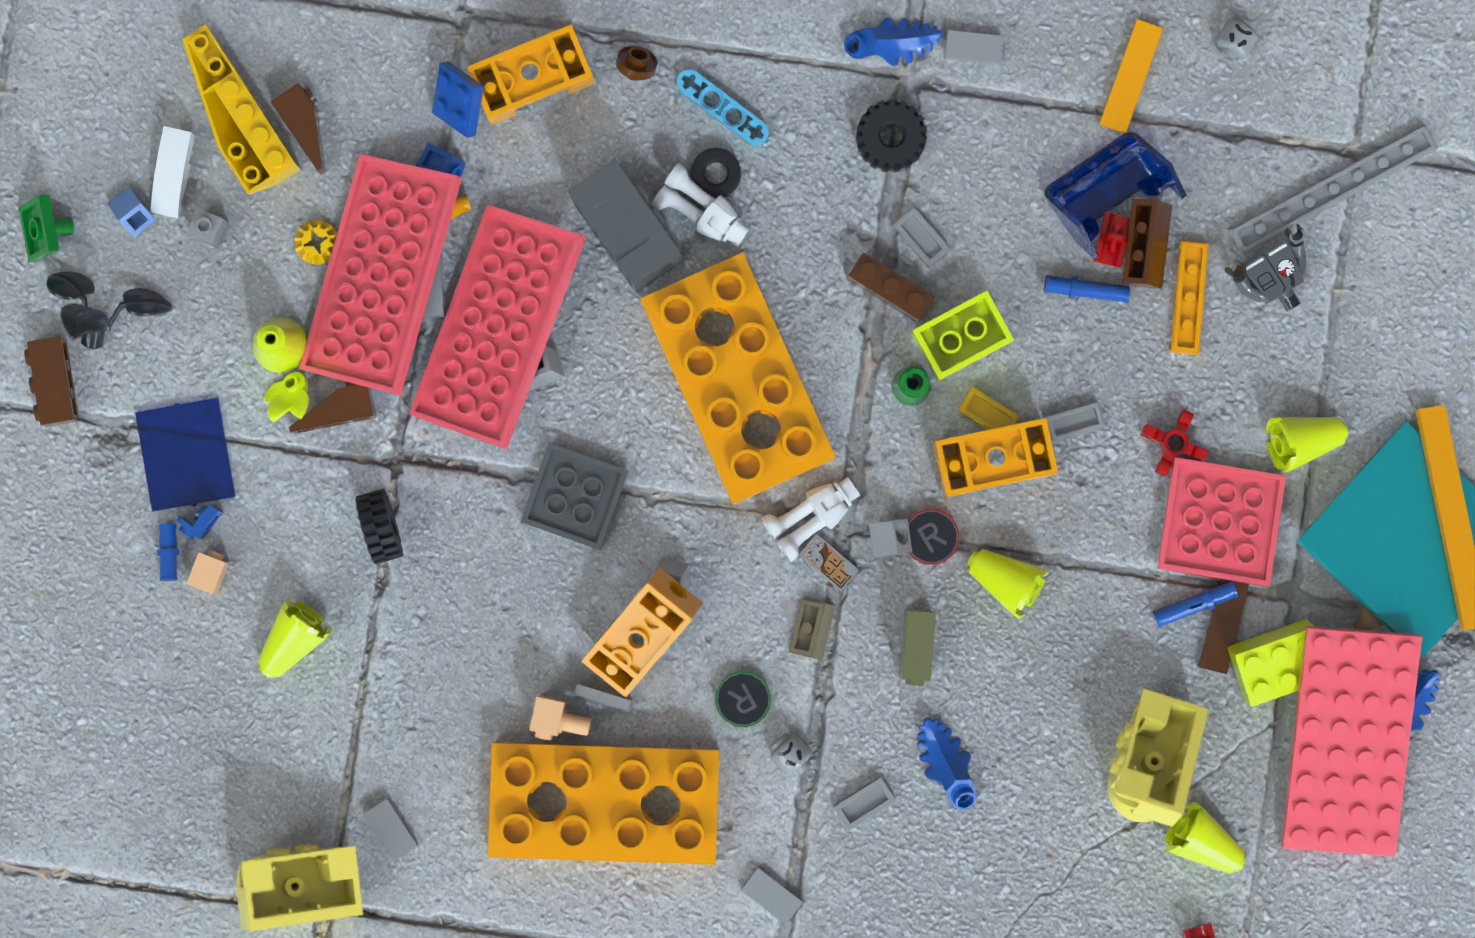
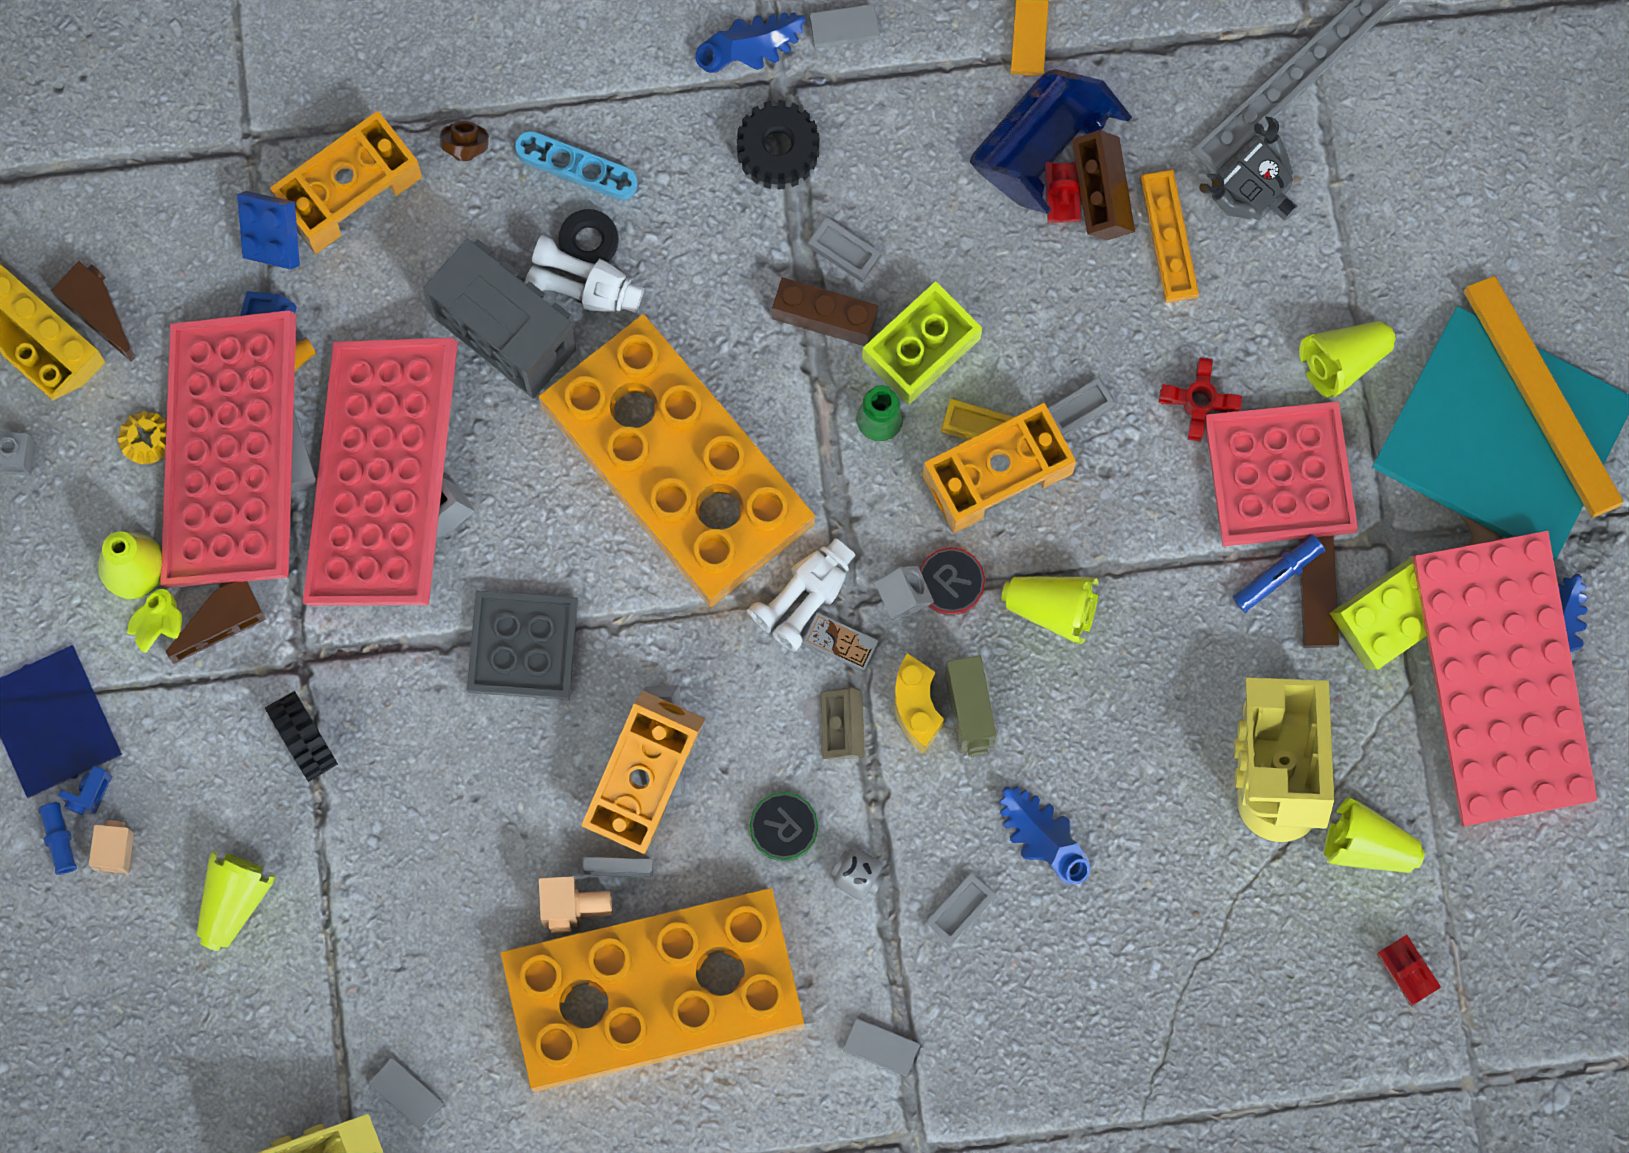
camera: 15 degrees left, 10 degrees down
(873, 630) = (913, 703): none -> yellow brick
(1087, 289) = (1049, 255): blue pin -> none

